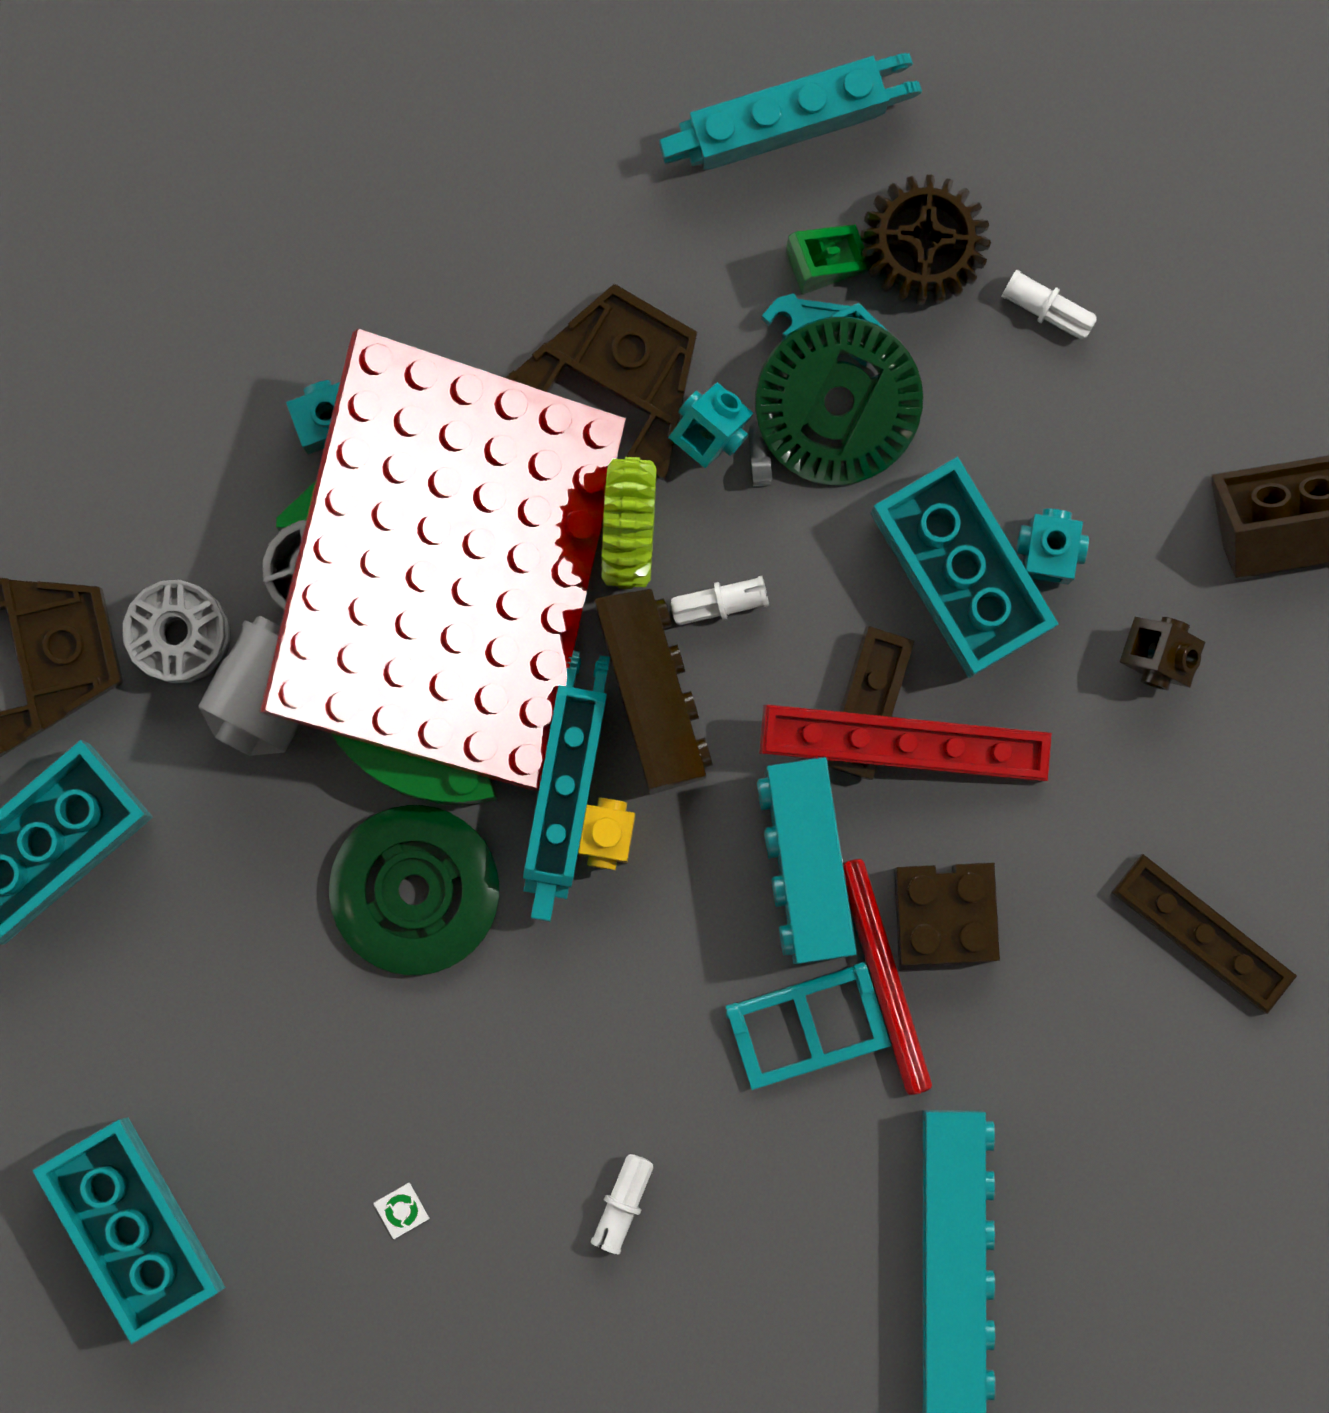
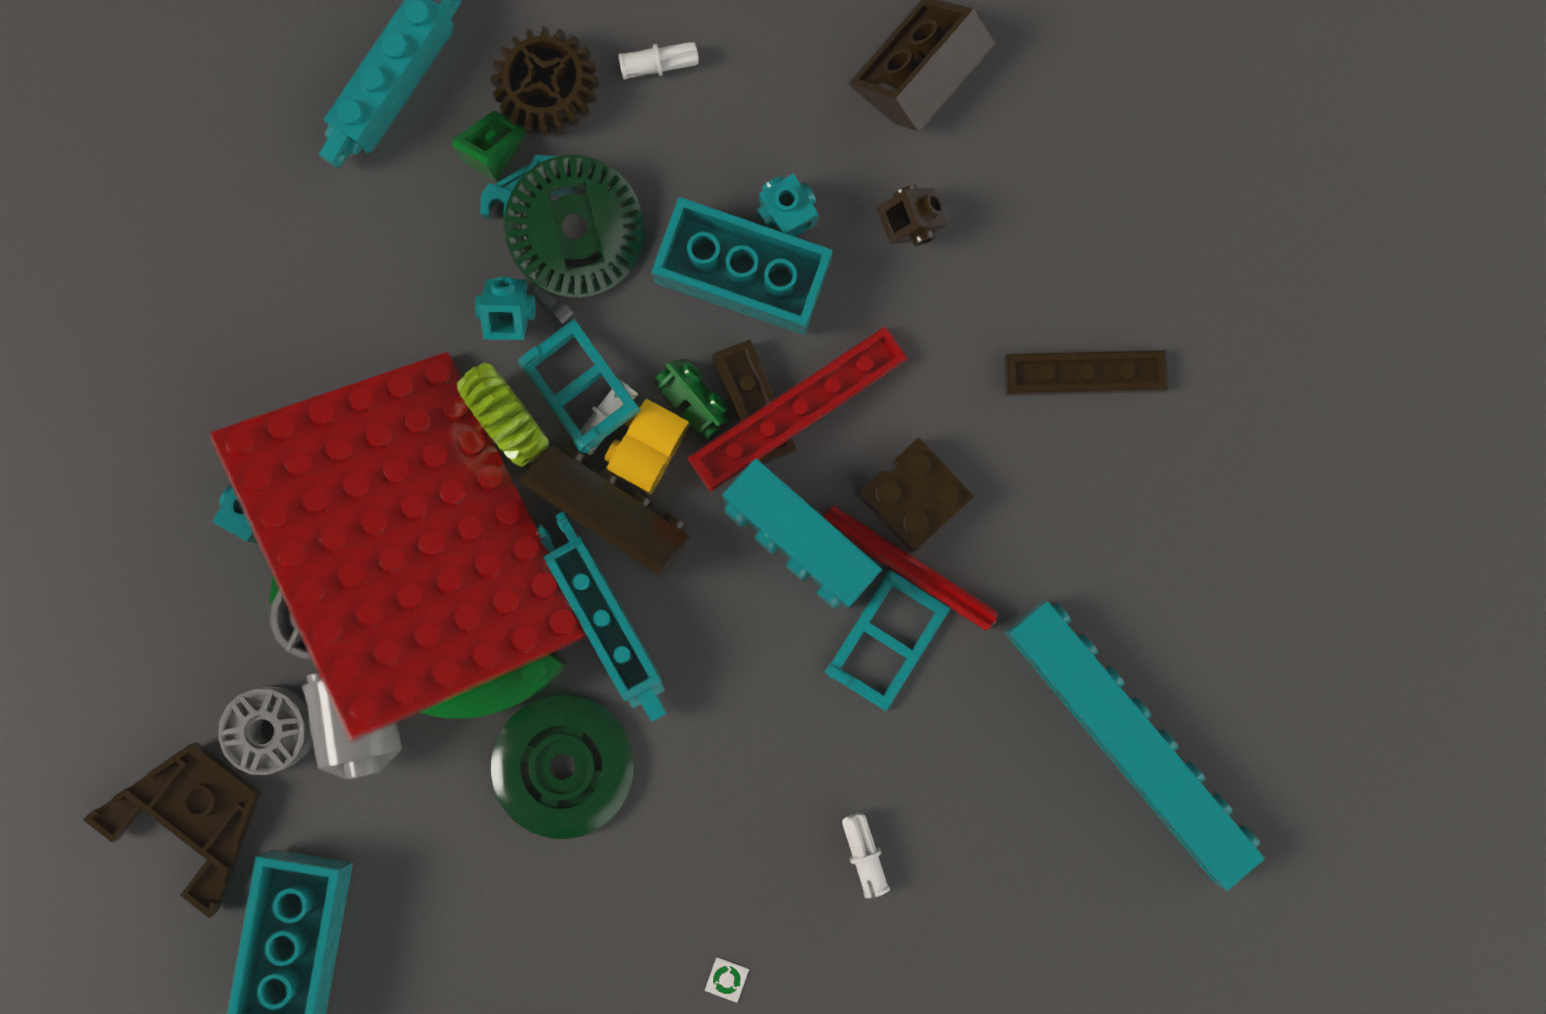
camera: 40 degrees left, 0 degrees up
(607, 833) = (656, 626): yellow brick -> none
(630, 353) = (417, 307): dark brown wing -> none
(705, 490) = (556, 402): none -> teal window
(737, 660) = (647, 446): none -> yellow brick
(819, 629) = (685, 383): none -> green hinge

